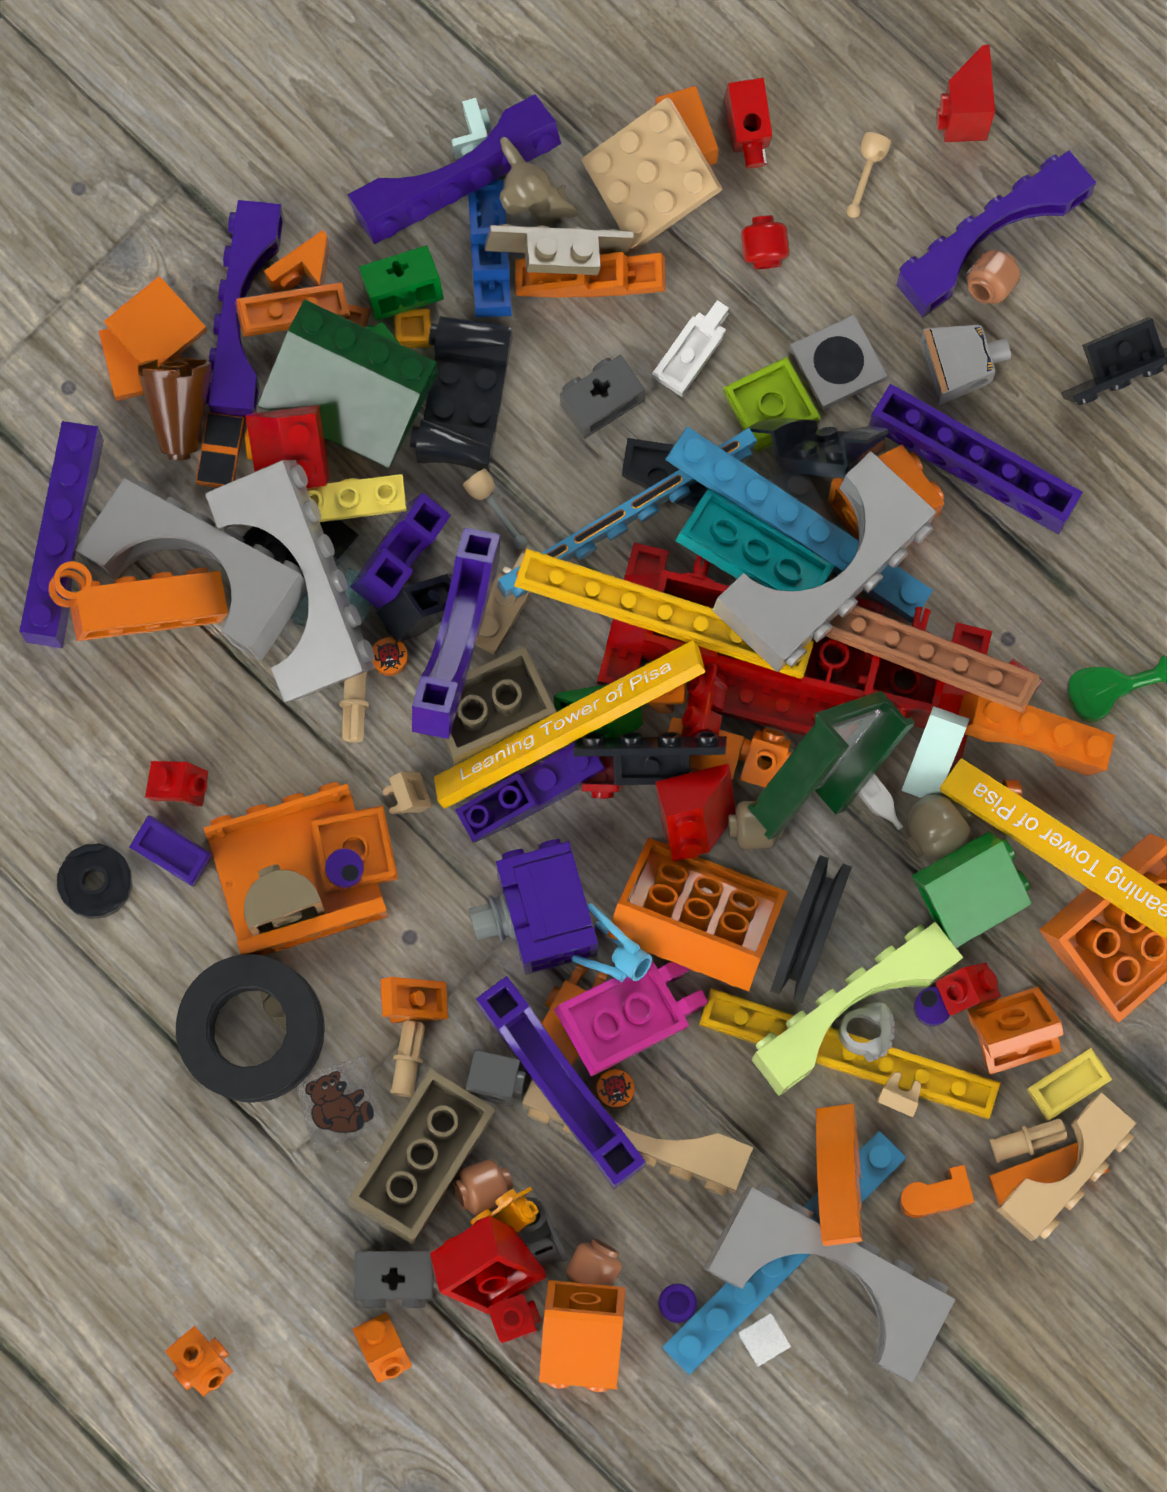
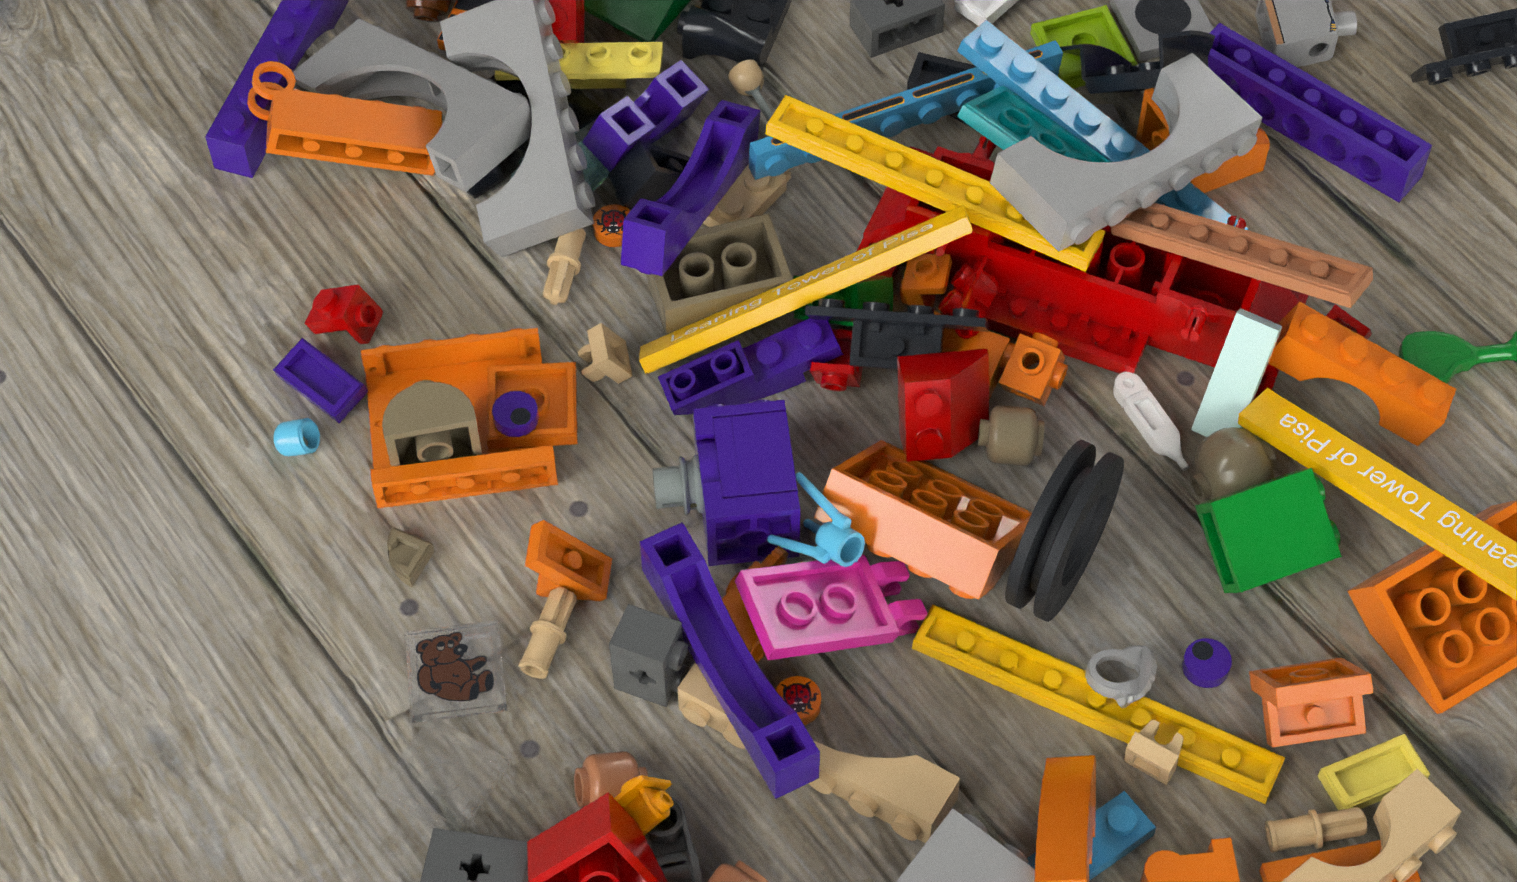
camera: 10 degrees right, 20 degrees down
(104, 900) = (226, 422): black tile -> none
(158, 908) = (289, 437): none -> medium azure piece
(201, 1008) = (399, 610): black tyre -> none
(421, 1157) = (539, 733): dark tan brick -> none
(833, 759) = (1113, 351): dark green piece -> none
(917, 963) = (1188, 607): yellowish green arch -> none
(968, 988) = (1252, 639): red bracket -> none

